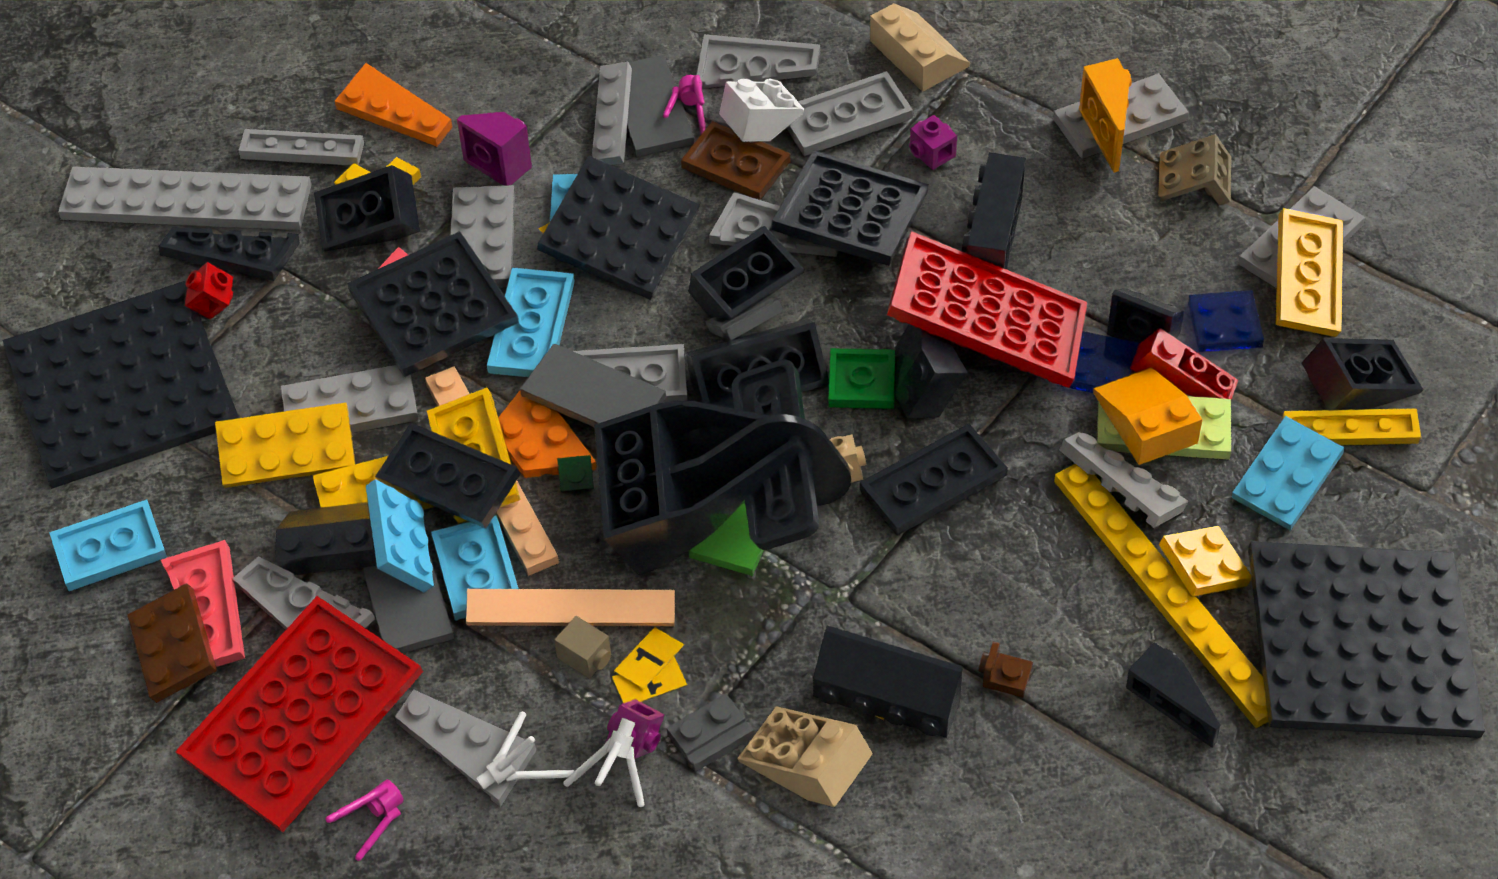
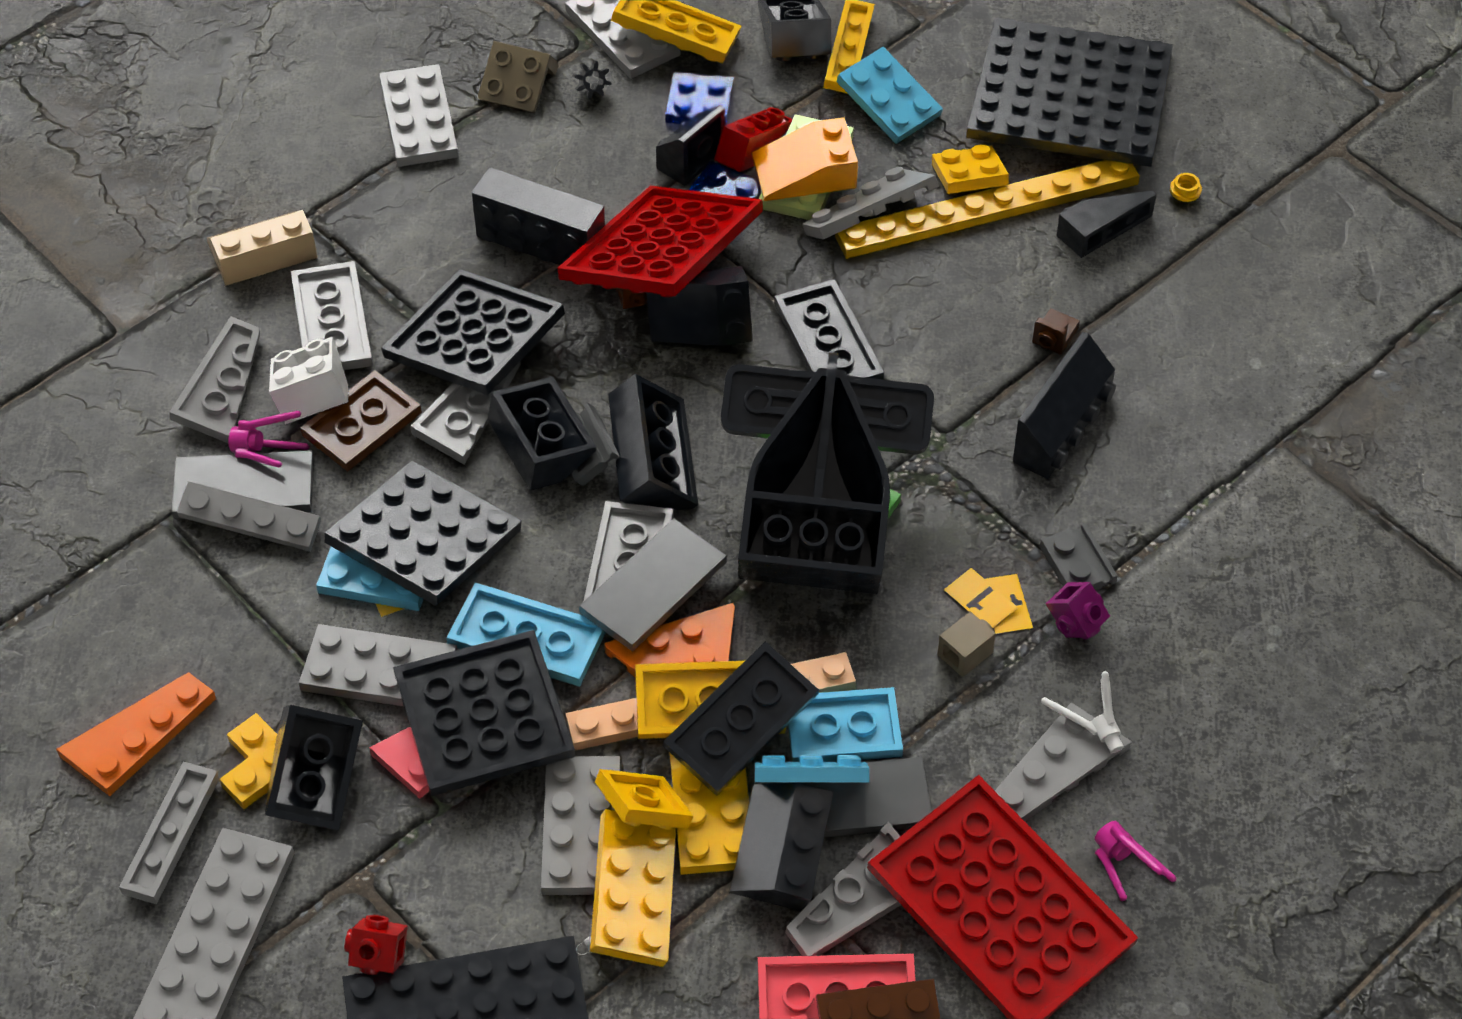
camera: 80 degrees left, 0 degrees up
(231, 251) = (319, 910): black wing -> none
(360, 427) = (643, 799): none -> yellow plate
(495, 145) = (269, 622): magenta slope -> none
(560, 606) = (917, 649): light nougat tile -> none
(575, 473) = (745, 621): dark green plate -> none
(617, 745) = (1109, 616): white plant -> none
(807, 754) = (1120, 488): tan slope -> none
(861, 378) = (691, 368): green plate -> none
(933, 142) = (407, 252): magenta brick -> none
(1105, 106) = (446, 101): light orange slope -> none
(1209, 226) = (588, 71): none -> black gear
(1260, 762) = (1186, 187): none -> yellow plate

